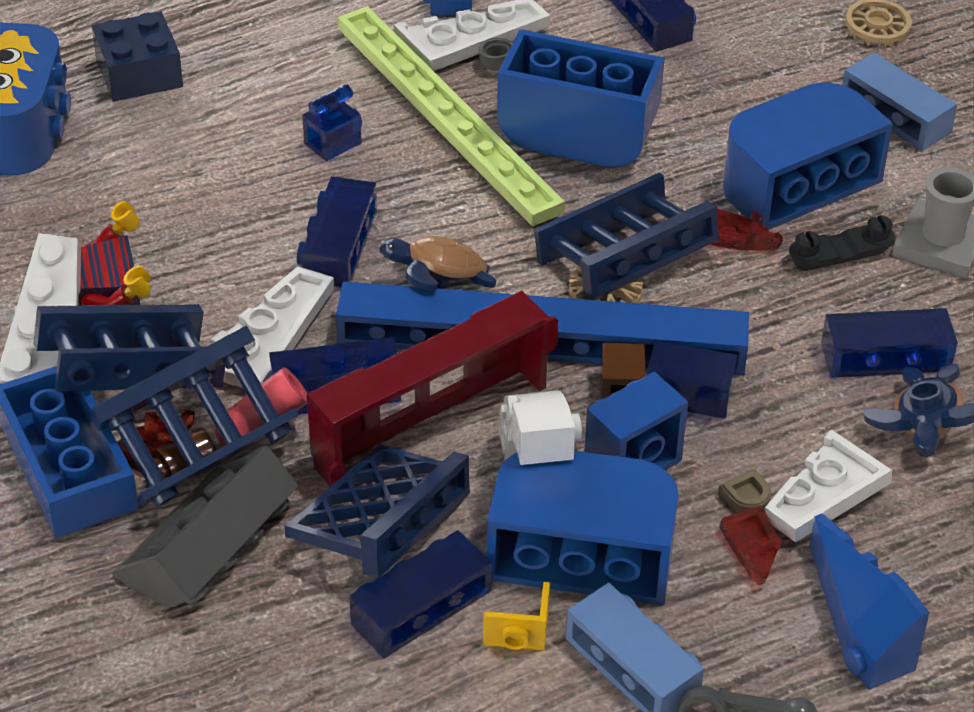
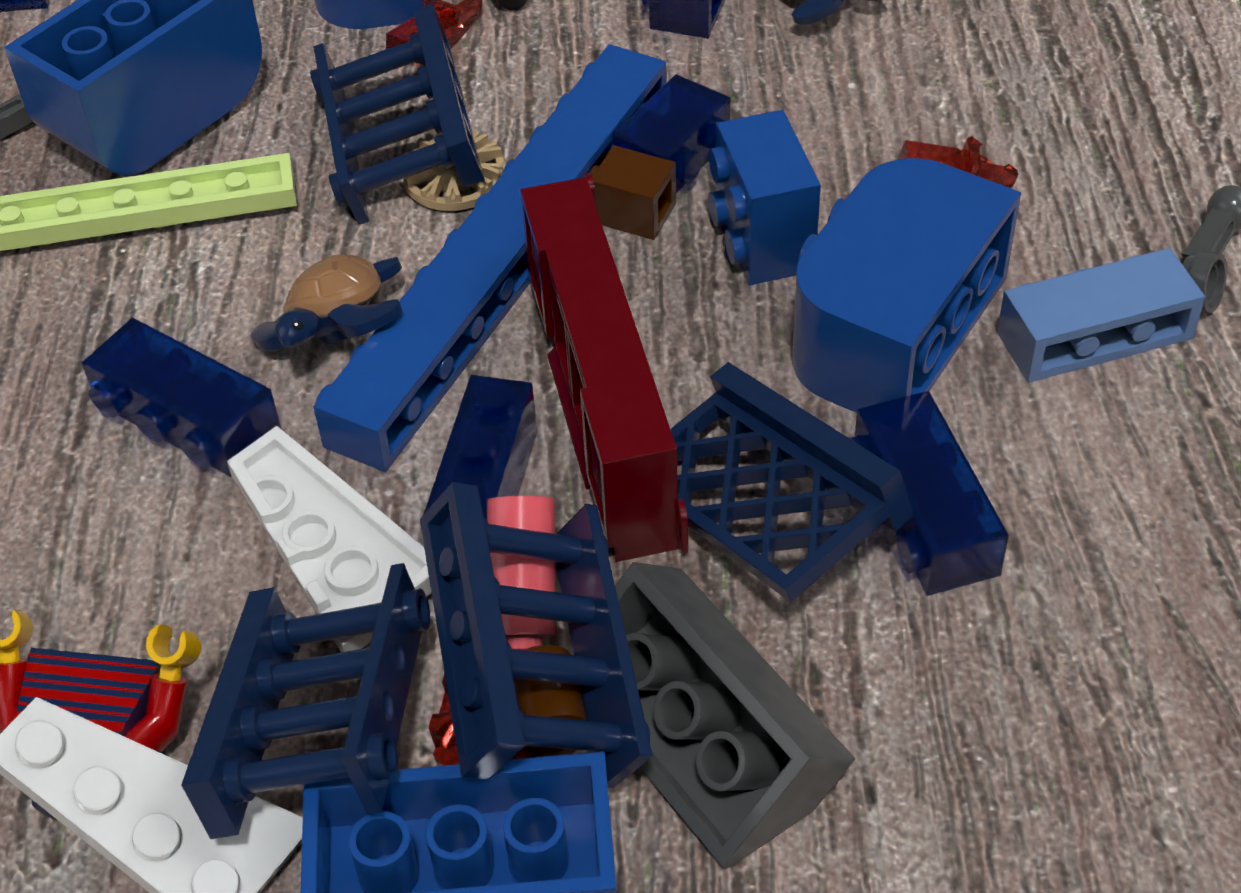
camera: 65 degrees left, 5 degrees up
(518, 630) = (1028, 398): yellow bracket -> none
(538, 427) = (749, 244): white brick -> none
(745, 492) = (865, 149): dark tan tile -> none
(828, 485) = (892, 83): white wing -> none
(872, 611) = (1110, 100): blue wedge -> none

